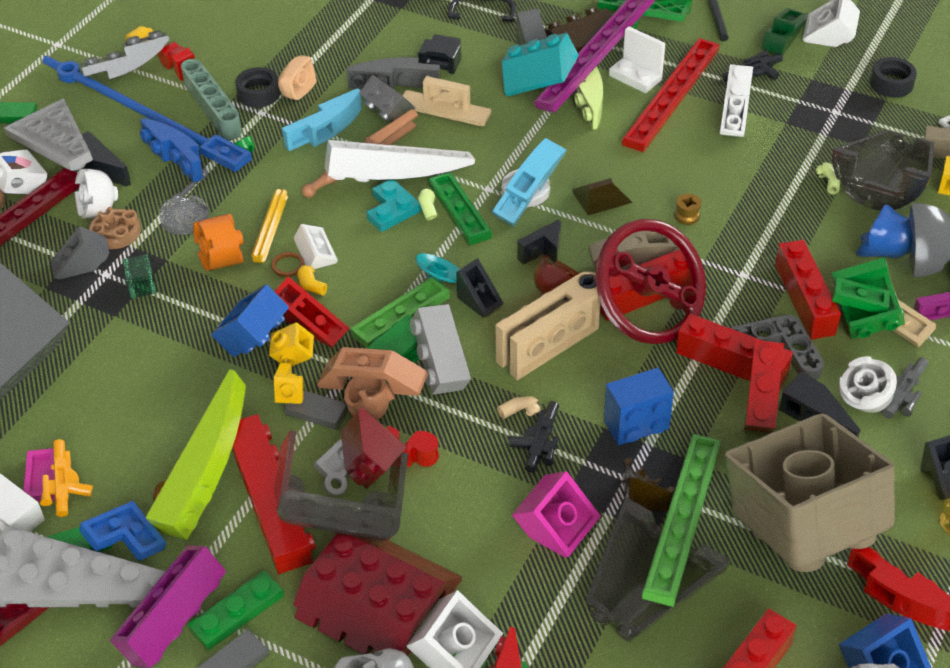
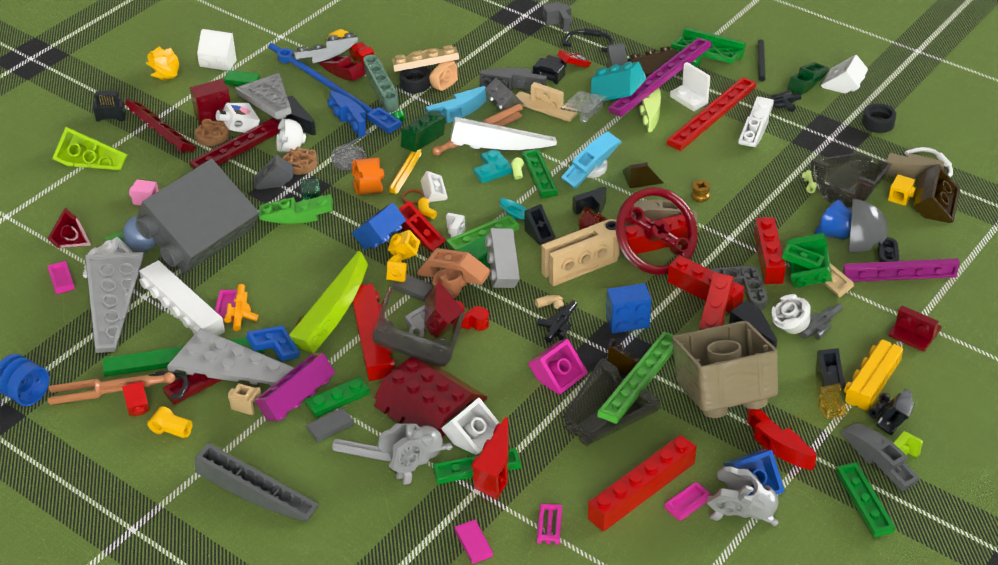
camera: 10 degrees right, 5 degrees down
(93, 644) = (242, 398): none -> tan window
(116, 310) = (289, 211): none -> bright green slope
(154, 81) = (343, 67): none -> dark red slope
(267, 56) = (425, 58): none -> tan plate
(284, 165) = (423, 131): none -> dark green brick
(359, 301) = (455, 224): none -> white bracket
(470, 36) = (573, 58): none -> red tile
(499, 99) = (584, 104): none -> clear hinge

